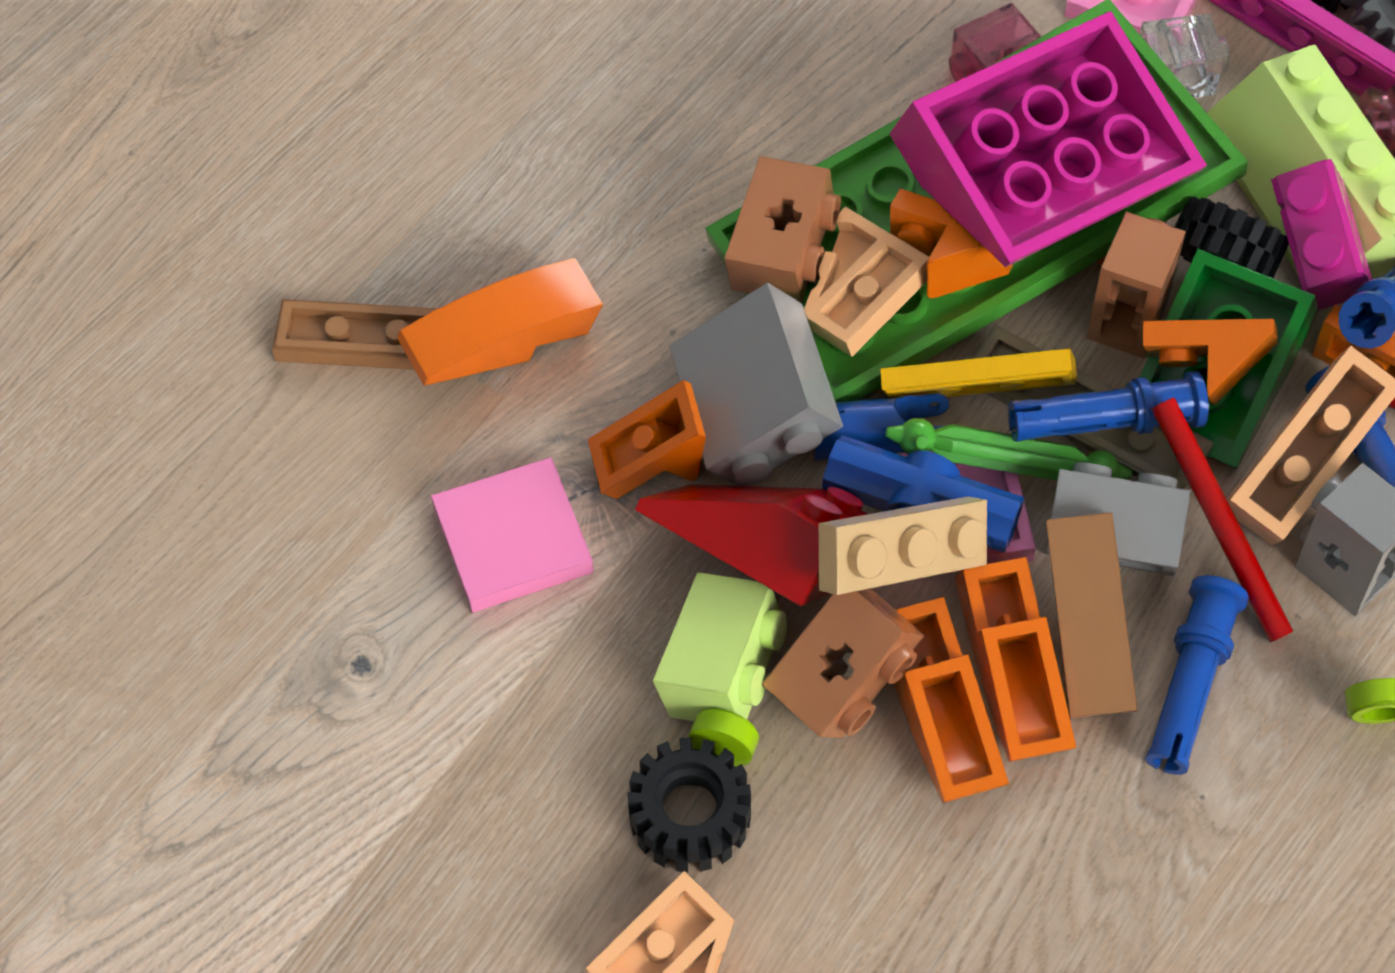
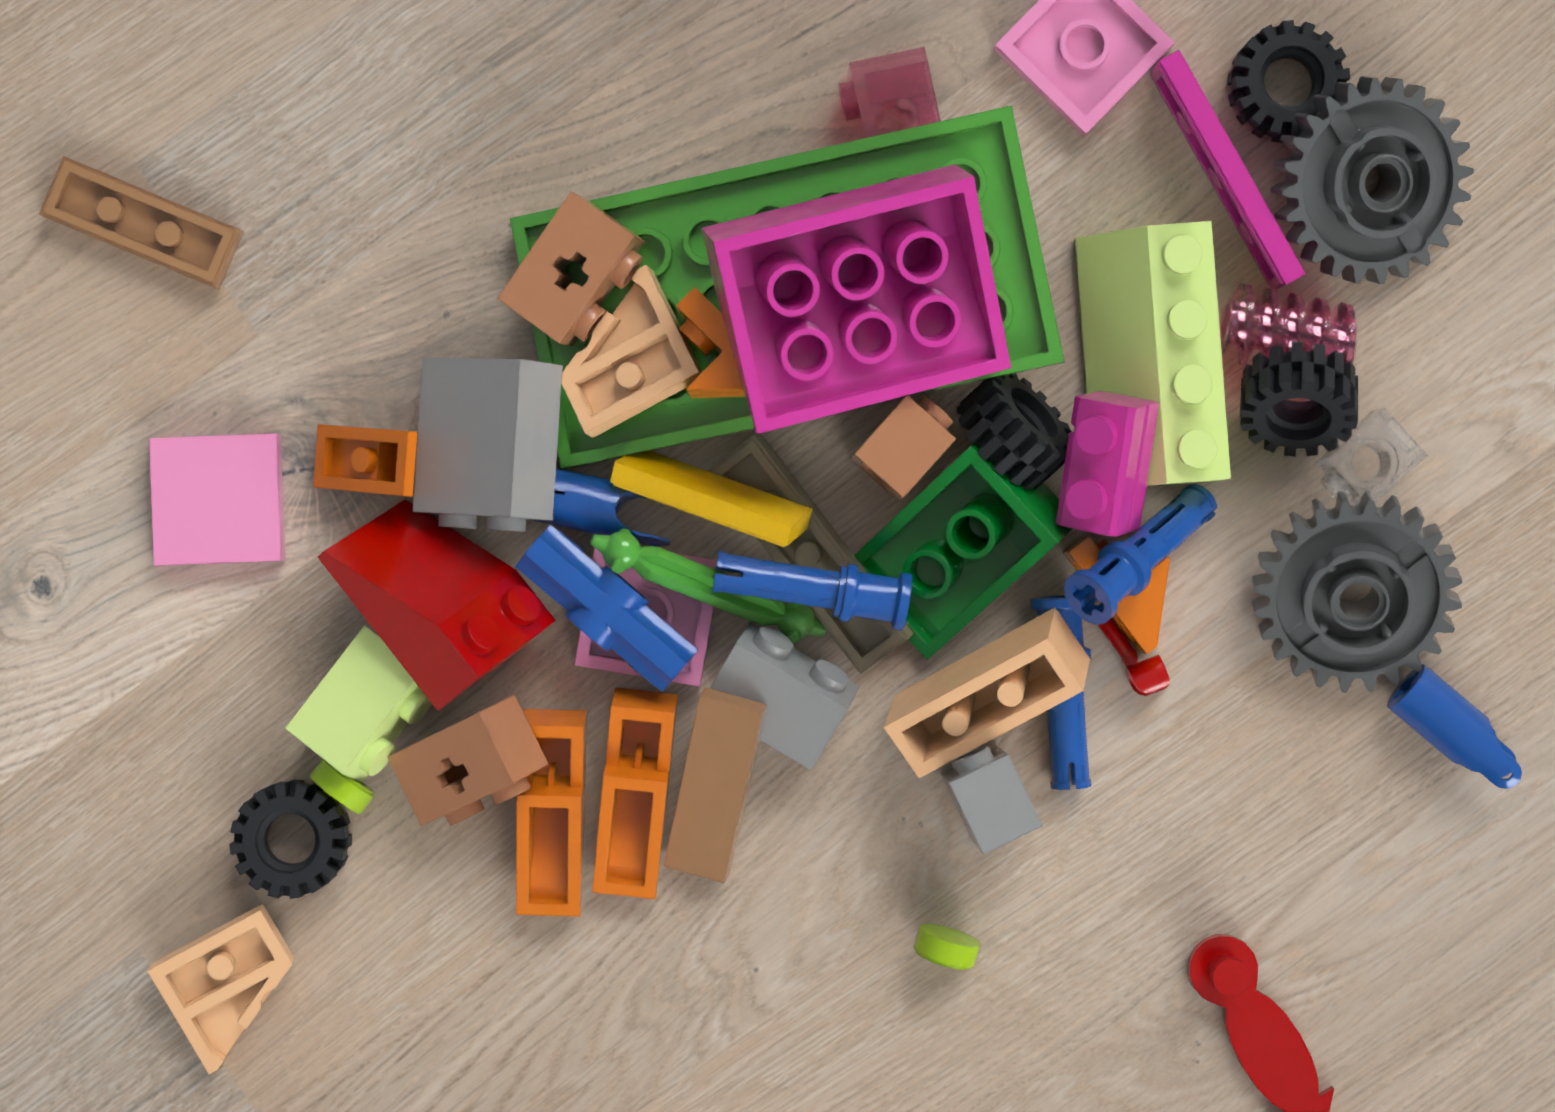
camera: 20 degrees right, 30 degrees up
(502, 323) = (266, 271): orange slope -> none
(902, 544) = (545, 695): tan plate -> none
(1189, 50) = (1081, 165): clear brick -> none
(1201, 647) = (810, 839): blue pin -> none
(1222, 519) = (875, 737): red bar -> none
(1229, 344) = (951, 560): orange slope -> none

